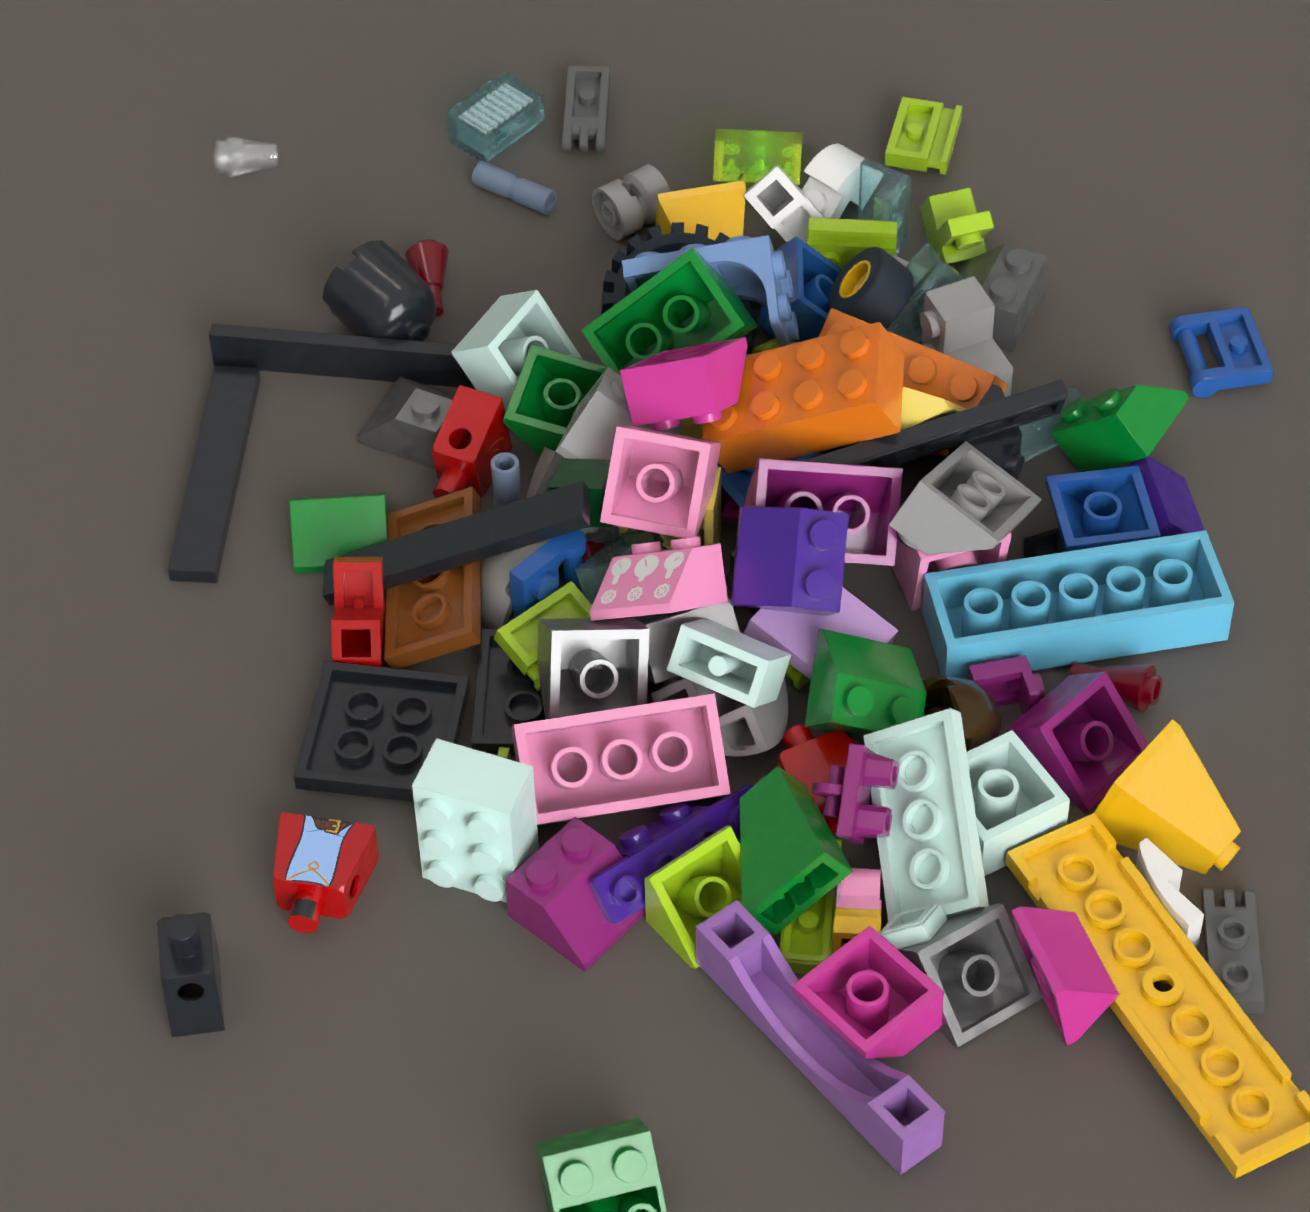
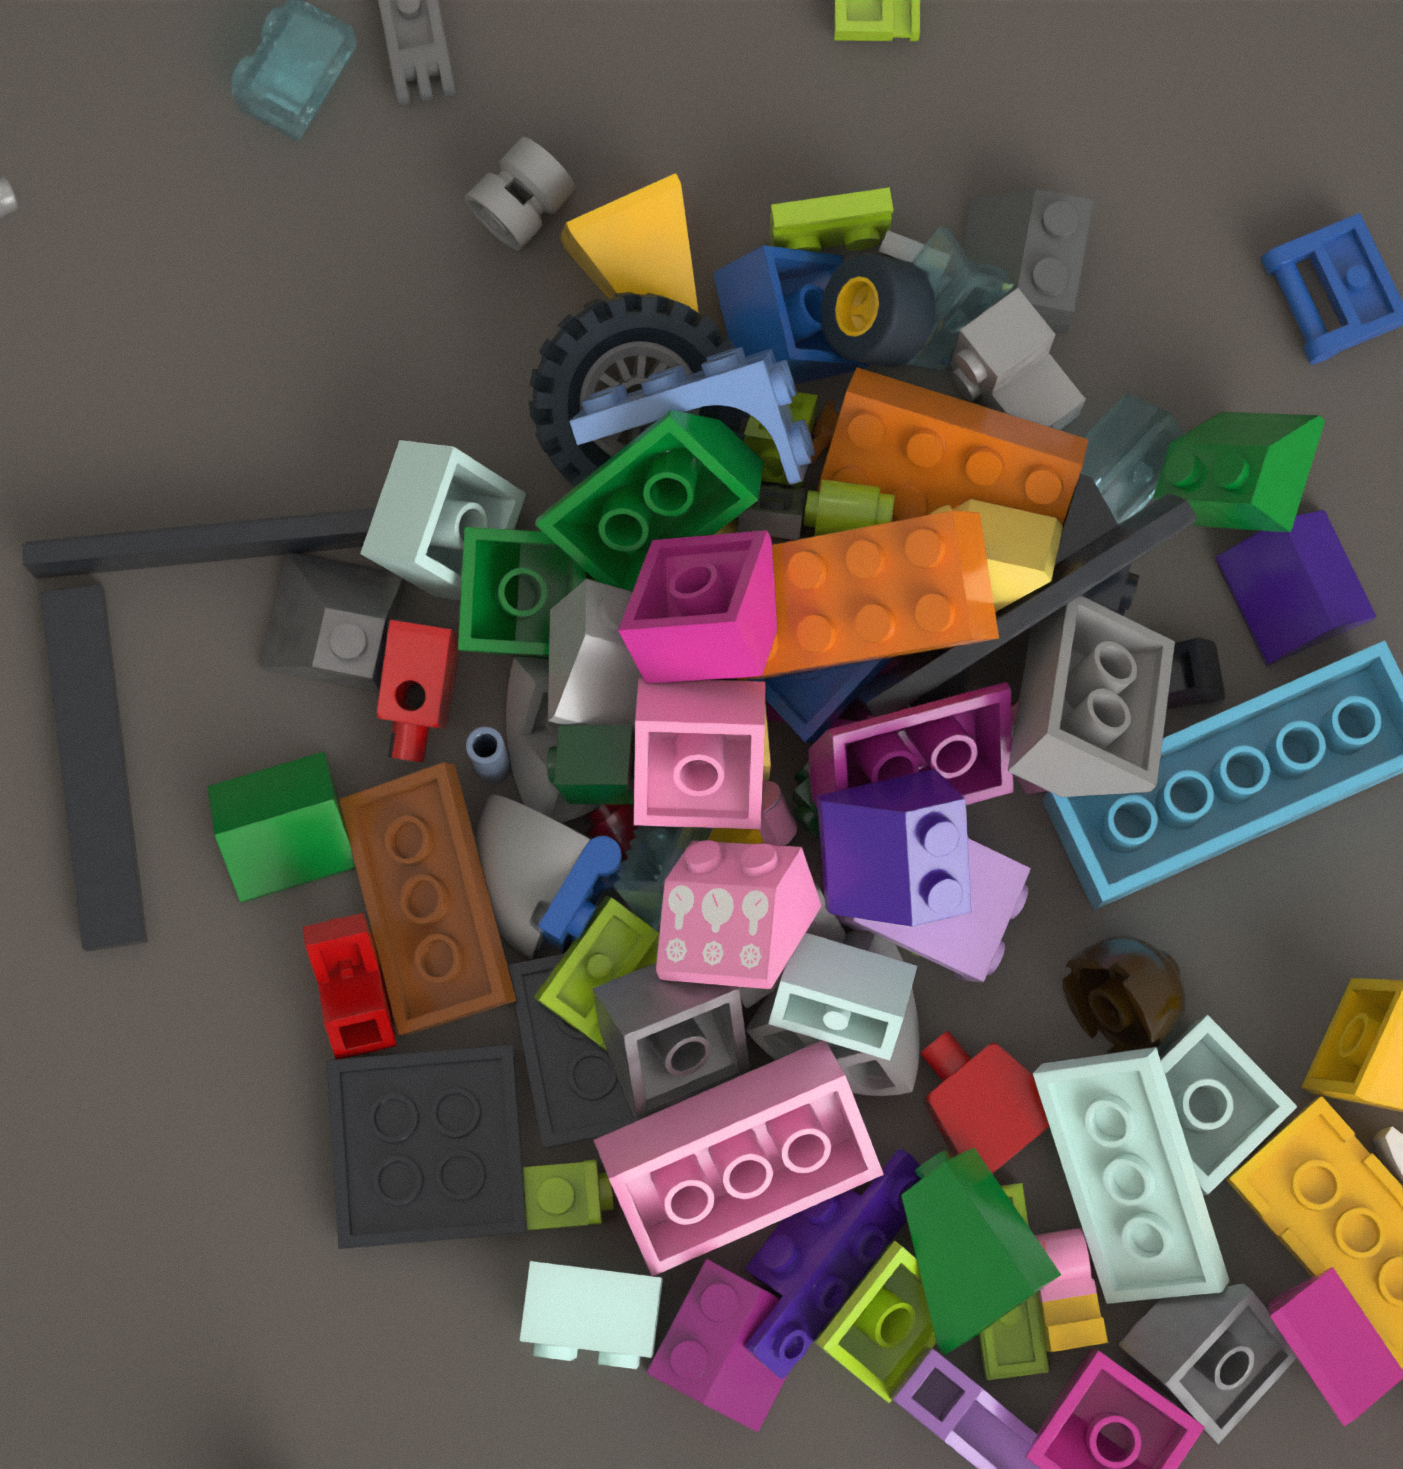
camera: 15 degrees left, 30 degrees up
(321, 867) = (407, 1378): red torso -> none
(381, 295) = (239, 453): black cylinder -> none
(430, 262) = (276, 360): dark red cone -> none
(476, 536) = (459, 863): black tile -> none
(518, 189) = (358, 189): sand blue piece -> none
(752, 153) = (669, 72): clear neon green slope -> none
(782, 204) = (733, 182): white brick -> none
(833, 180) = (782, 109): white brick -> none
(856, 816) = (1051, 1138): magenta hips -> none
(862, 685) = (1015, 984): green slope -> none
(885, 197) = (861, 142): clear light blue panel -> none
(914, 926) = (1144, 1325): light aqua tile -> none
(955, 225) = (956, 150): lime brick -> none
(1009, 682) = (1158, 903): magenta bracket -> none
(1082, 736) = (1276, 971): magenta slope -> none
(1102, 507) = (1246, 621): blue slope -> none
(1135, 683) = (1316, 867): dark red cone -> none

